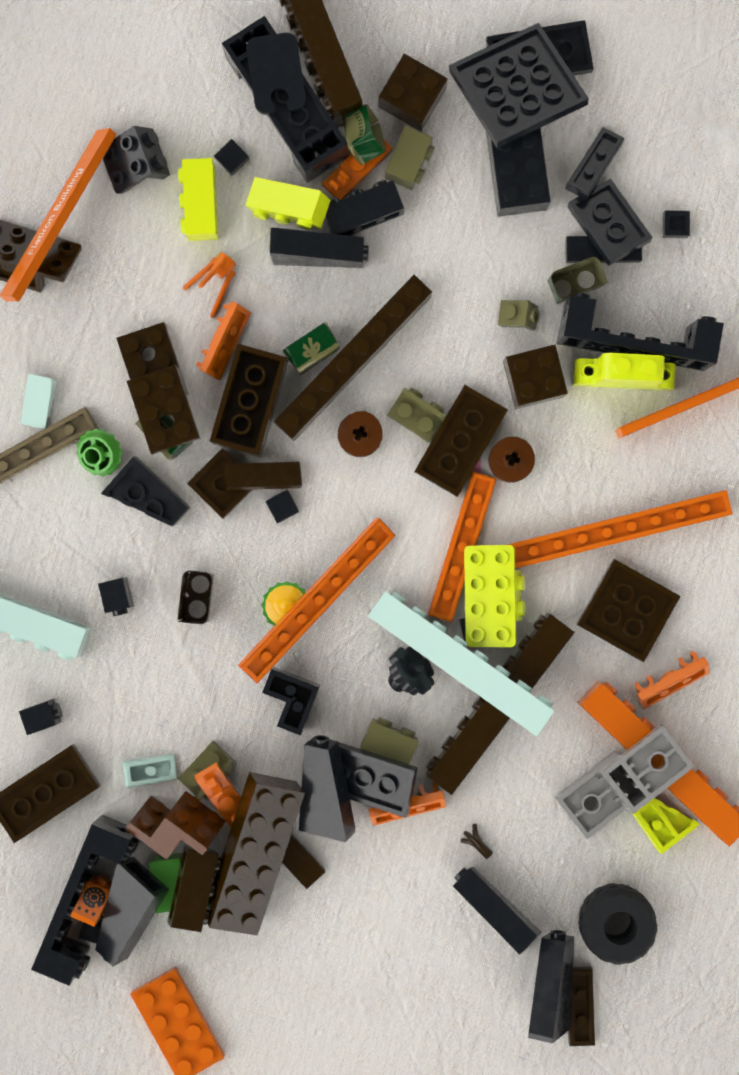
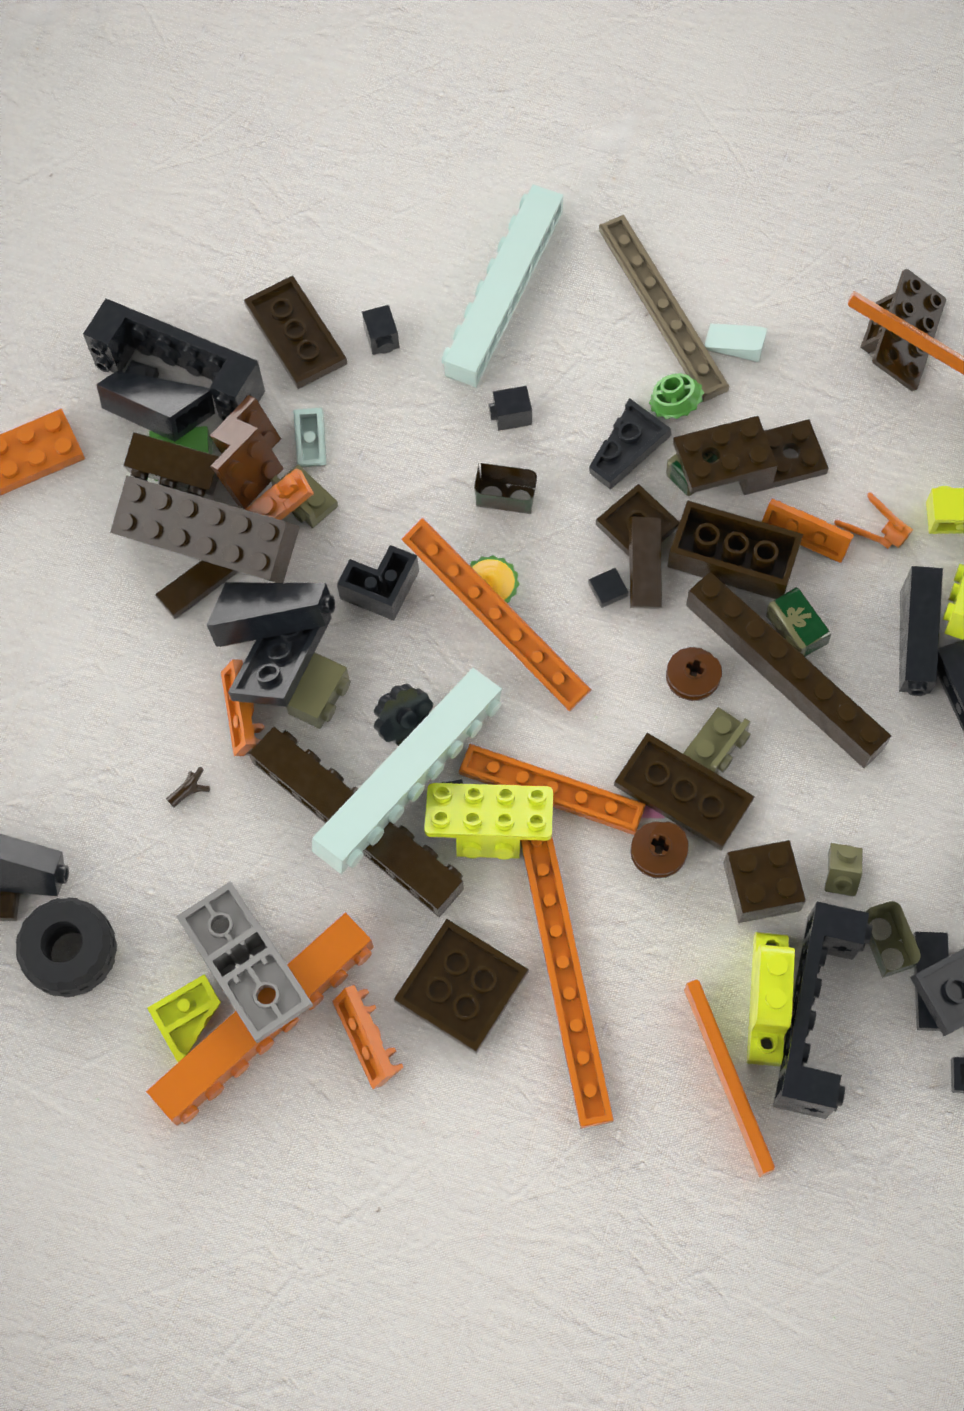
camera: 95 degrees right, 20 degrees down
(93, 900) = (169, 364): orange slope -> none
(496, 909) = (100, 804): black slope -> none

